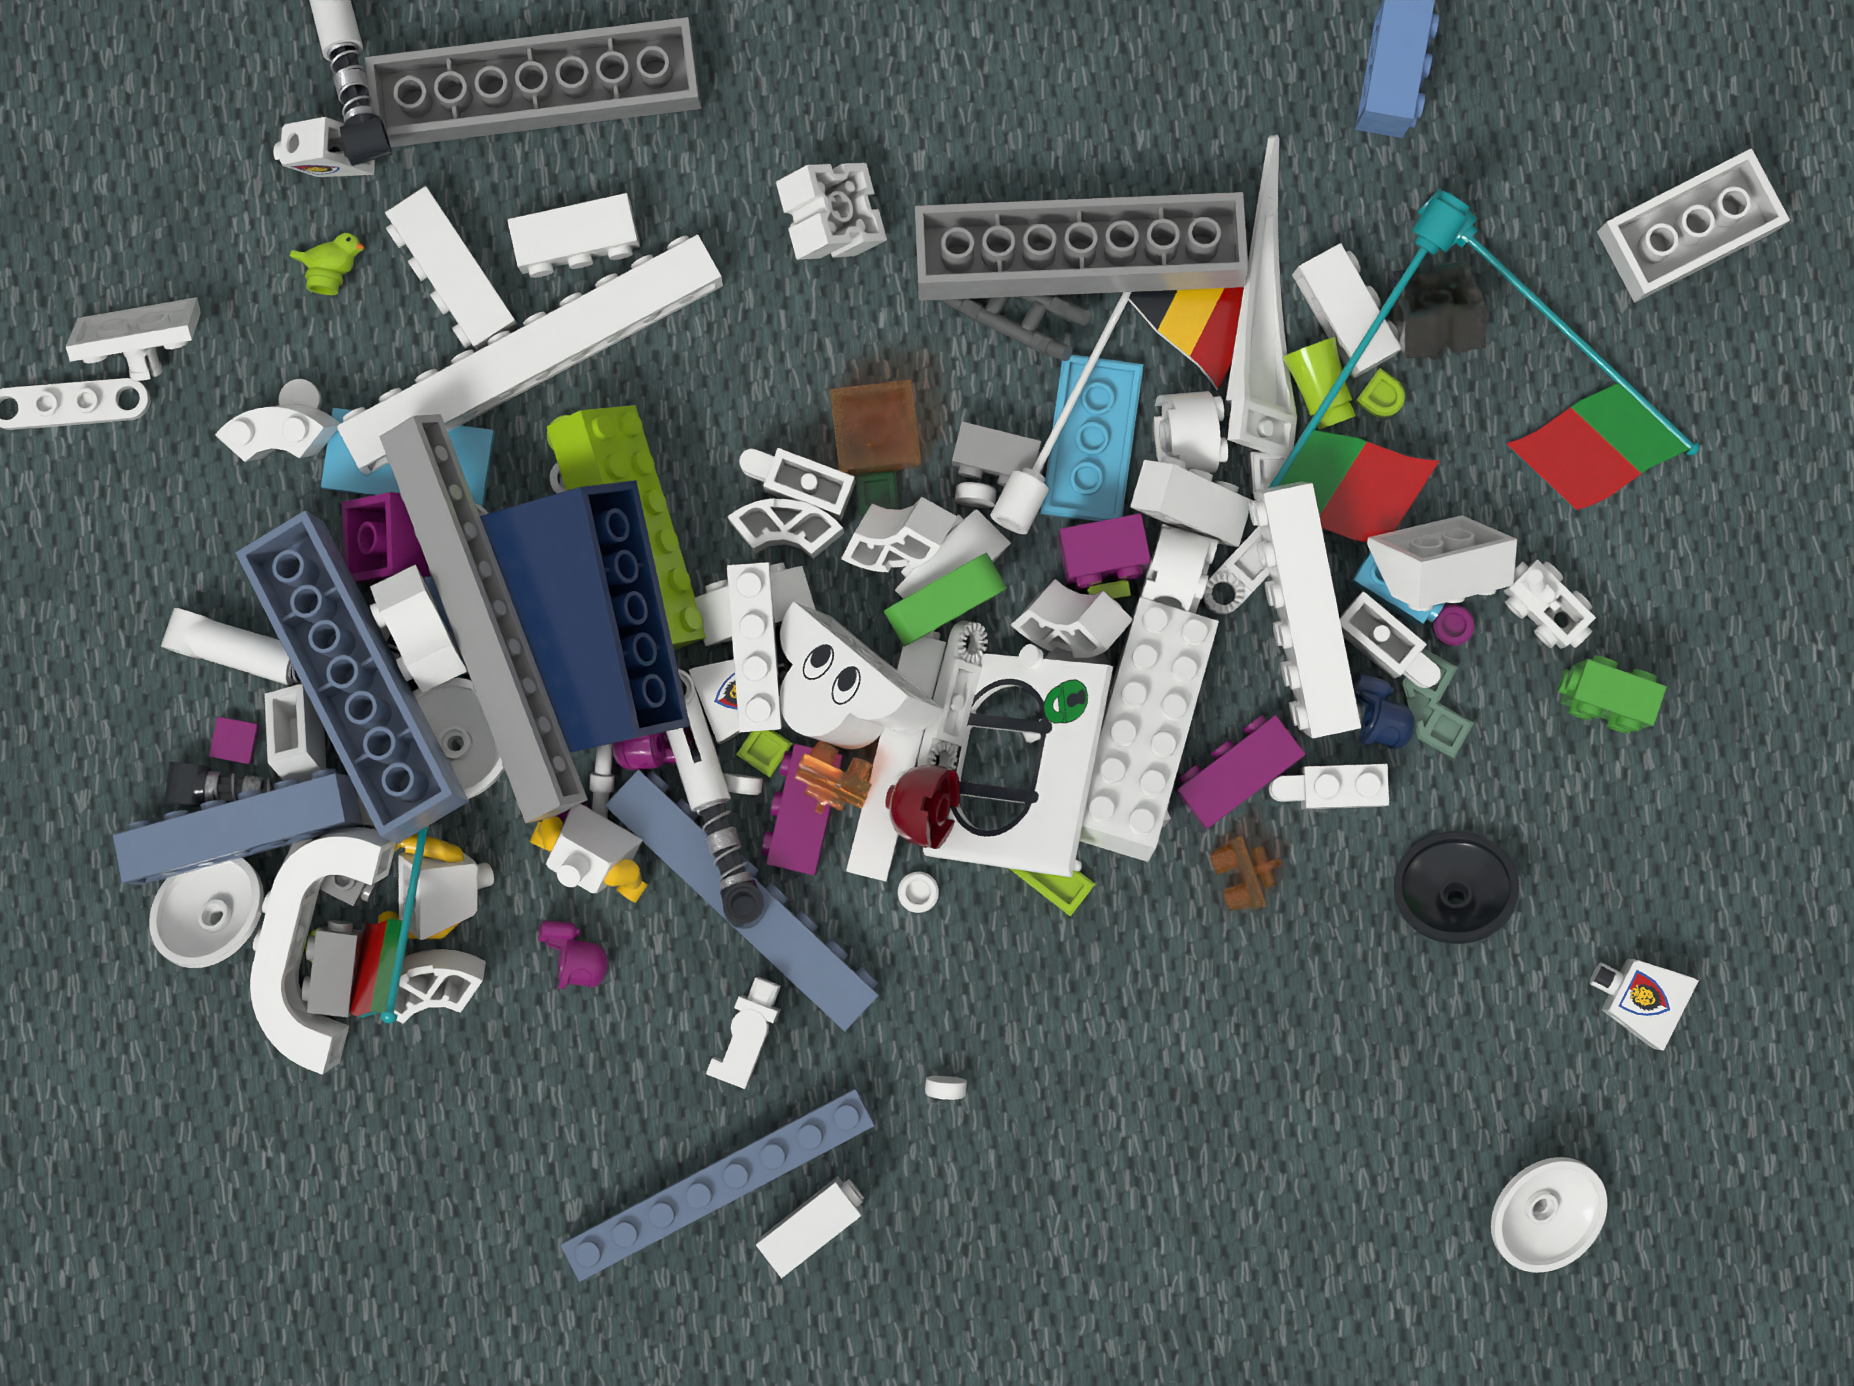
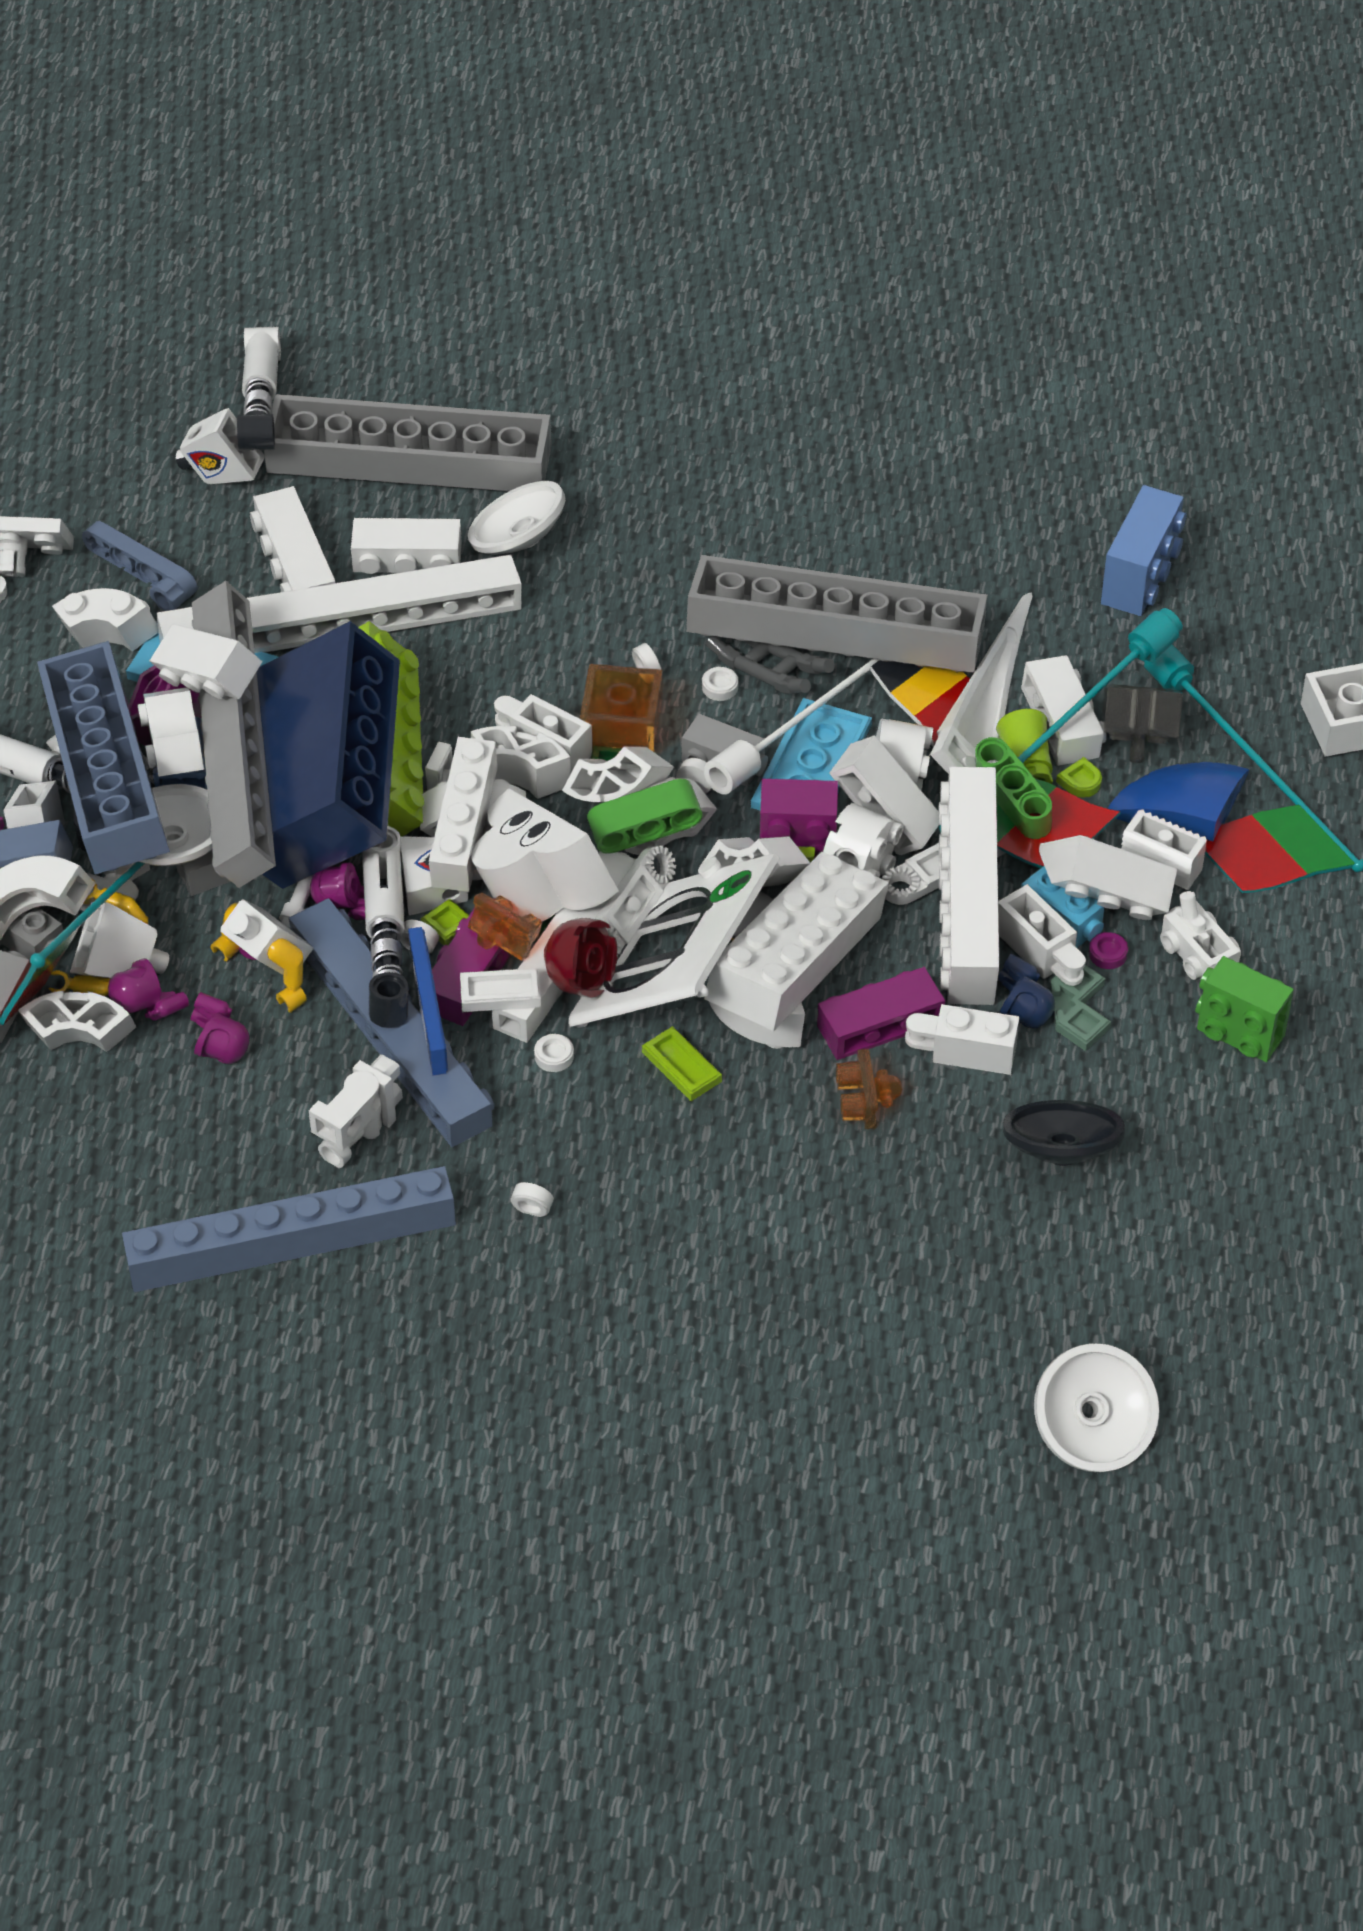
camera: 10 degrees right, 35 degrees down
(328, 263) = (192, 530): lime animal -> none
(334, 353) = (169, 581): none -> sand blue beam
(430, 551) = (205, 662): none -> white brick
(479, 937) = (140, 989): none -> magenta piece
(675, 165) = (517, 518): none -> white dish
(700, 550) = (439, 765): none -> white tile
(783, 895) = (428, 1001): none -> blue tile
(811, 1225) = (366, 1269): white brick -> none
(831, 210) = (629, 557): white brick -> none
(851, 854) = (500, 990): none -> white tile
(882, 344) = (644, 657): none -> white tile
(967, 349) = (720, 683): none -> white tile
(1341, 476) = (1020, 802): none -> bright green beam
(1491, 493) = (1166, 844): none -> white brick
(1496, 399) = (1185, 794): none -> blue brick
(1644, 998) = (1231, 1259): white torso -> none

